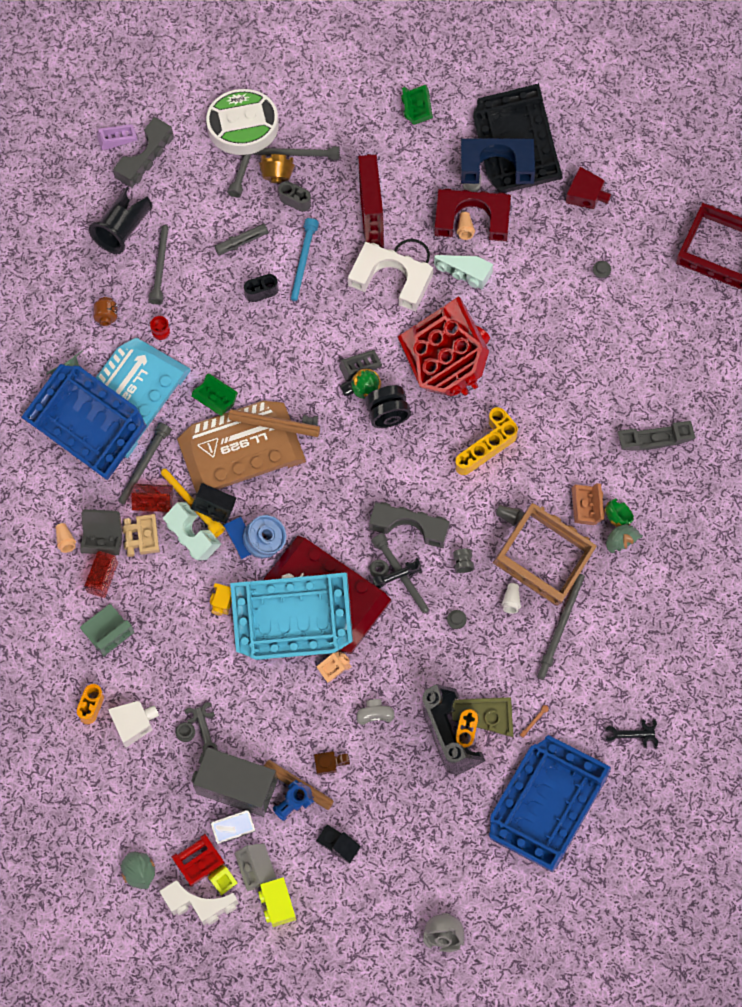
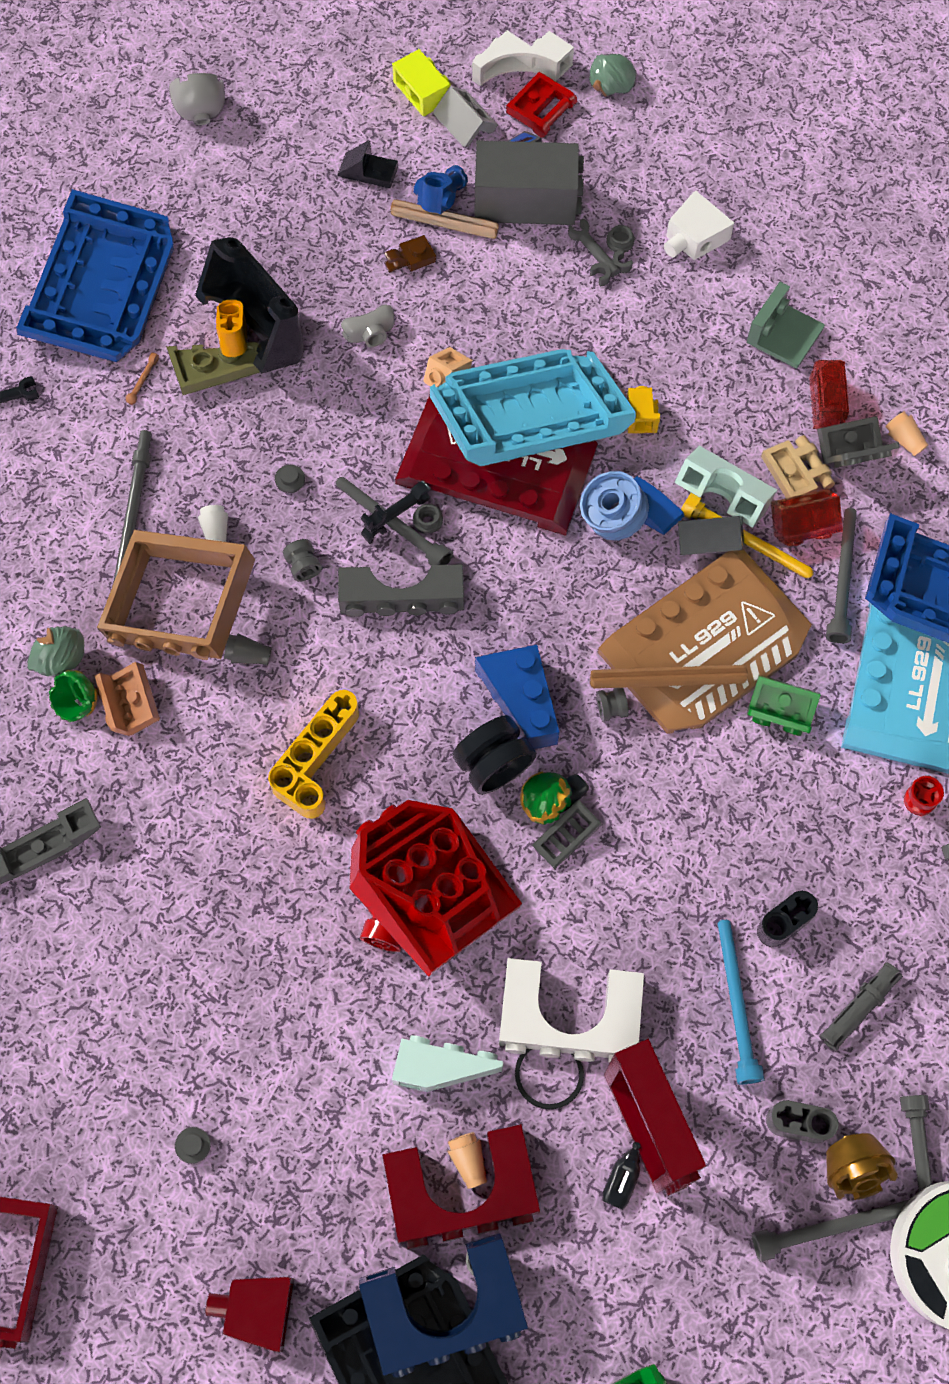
camera: 160 degrees right, 0 degrees up
(95, 704) = (762, 240): light orange beam -> none
(222, 880) = (501, 94): neon yellow slope -> none
(359, 443) = (521, 691): none -> blue wedge
(392, 198) = (623, 1179): none -> black piece

